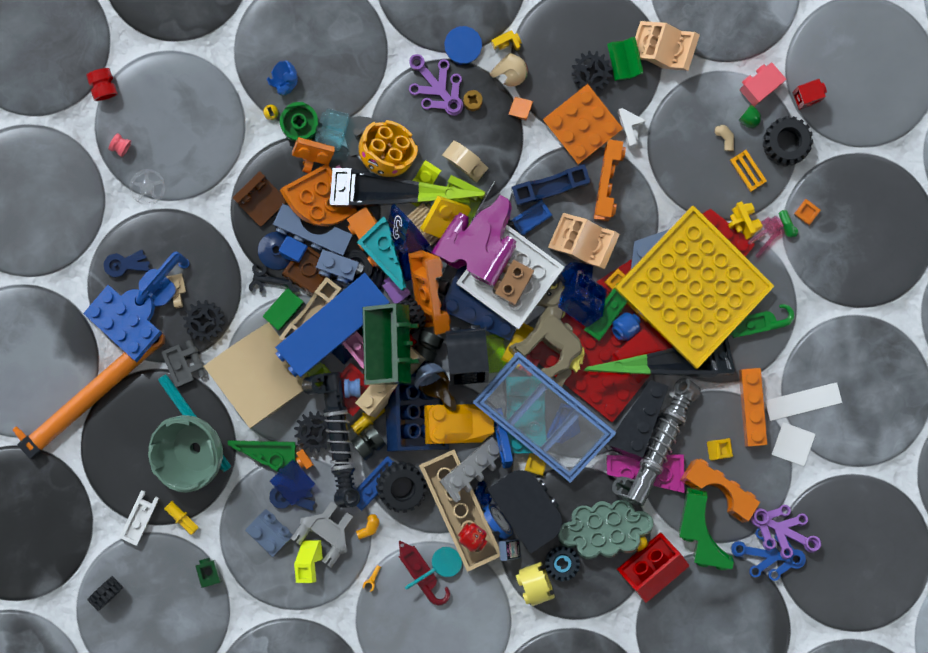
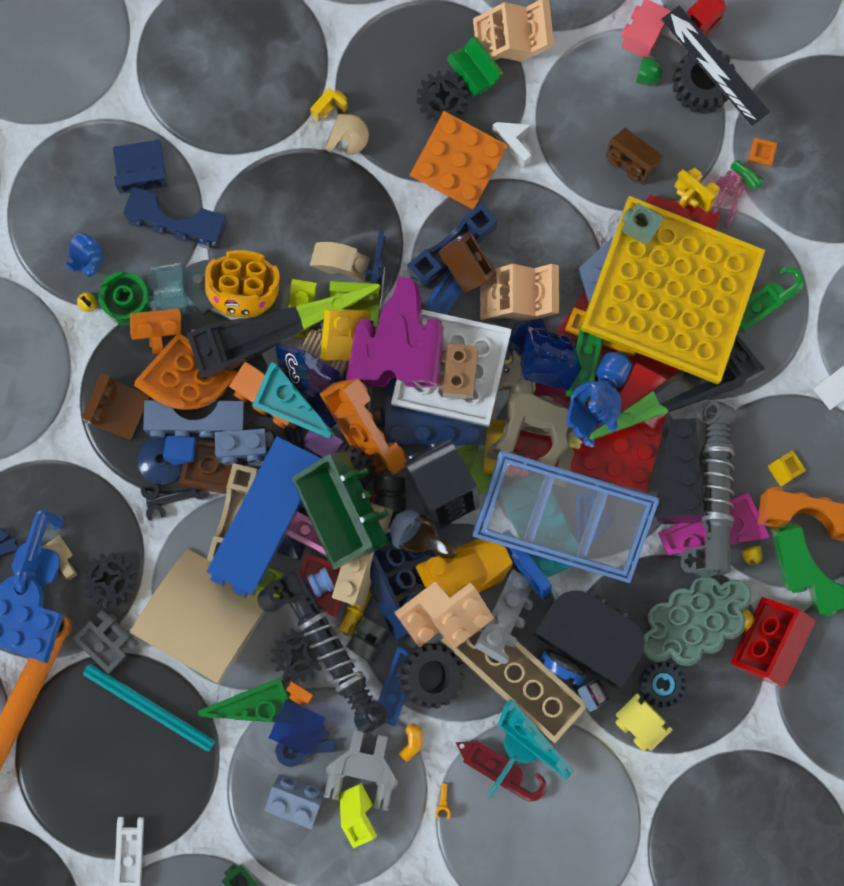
camera: 15 degrees left, 5 degrees down
(173, 453) = (138, 756): sand green piece -> none
(181, 518) = (180, 829): yellow axle -> none
(283, 309) = (199, 526): green panel -> none
(350, 28) = (139, 166): none -> dark blue bracket
(377, 94) = (204, 227): none -> dark blue arch
(422, 445) = (453, 617): none -> light nougat bracket
(437, 88) = (270, 191): medium lavender plant -> none
(448, 550) = (522, 729): none -> teal wing
(463, 45) = (279, 131): blue tile -> none
(471, 103) = (321, 192): pearl gold wheel -> none
(472, 537) = (544, 698): red head -> none
(480, 494) = (534, 647): clear blue arm -> none
(491, 177) = (377, 271): none -> dark blue piece
(520, 108) = (378, 174): orange slope -> none
(535, 464) = (578, 579): yellow tile -> none
(555, 203) = (467, 262): none -> reddish brown brick
(603, 352) = (602, 409): none -> blue piece
(605, 206) = (525, 239): orange piece -> none
(667, 500) = (752, 555): none -> yellow hinge
(699, 233) = (649, 218): none -> sand green brick
(711, 175) = (633, 156): none -> reddish brown slope
(727, 135) = (632, 104): tan arm -> none
(739, 157) = (677, 126): light orange tile -> none
(752, 407) = (804, 401): orange brick -> none
(799, 135) = (715, 65): none -> black sticker

